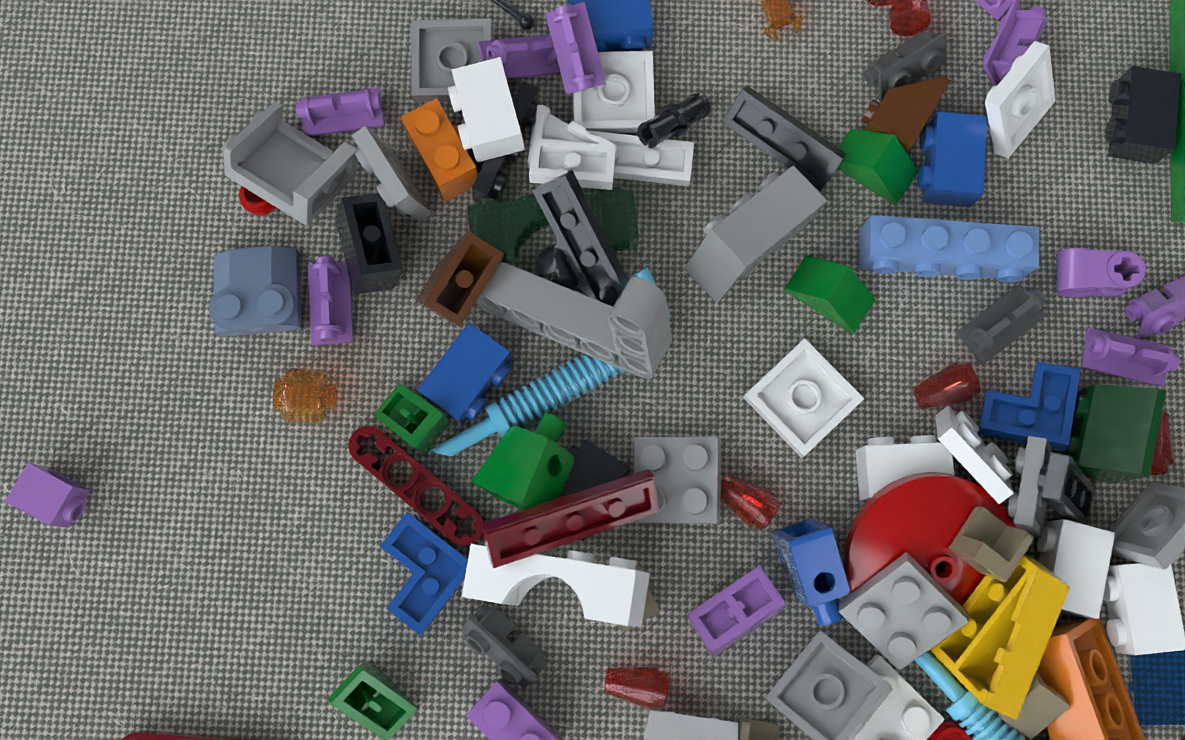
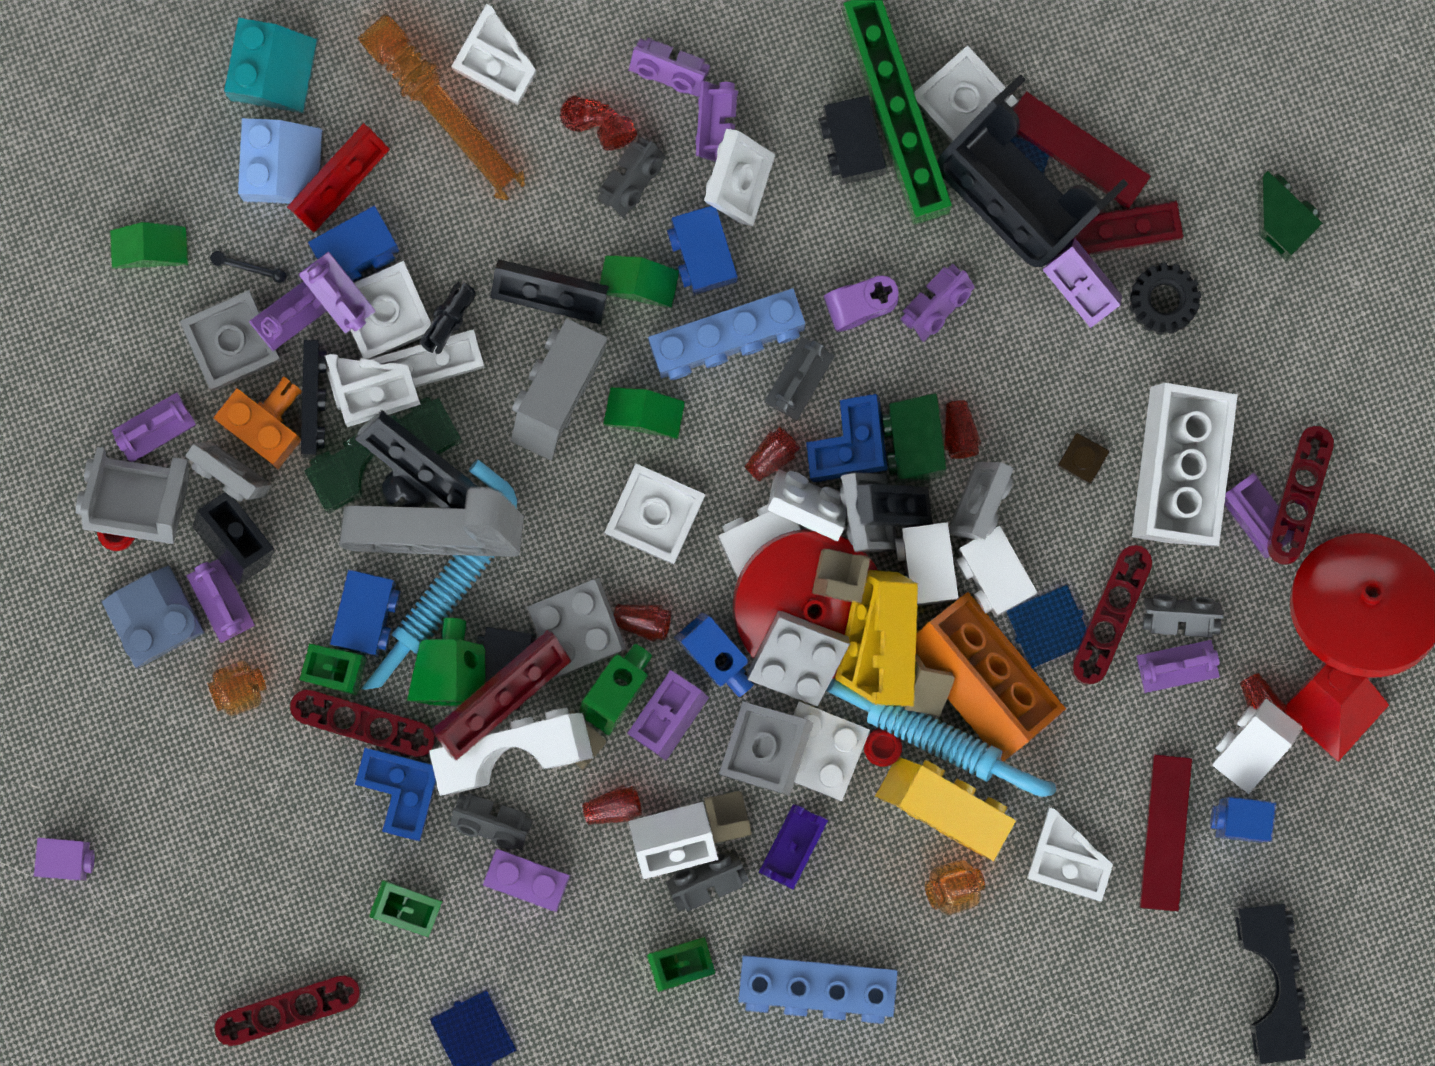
camera: 20 degrees left, 5 degrees up
(460, 278) = (324, 536): reddish brown slope -> none
(487, 109) = (286, 383): white brick -> none
(683, 571) = (609, 701): none -> green torso
(905, 110) = (644, 227): reddish brown slope -> none
(1128, 357) = (915, 363): medium lavender hinge -> none

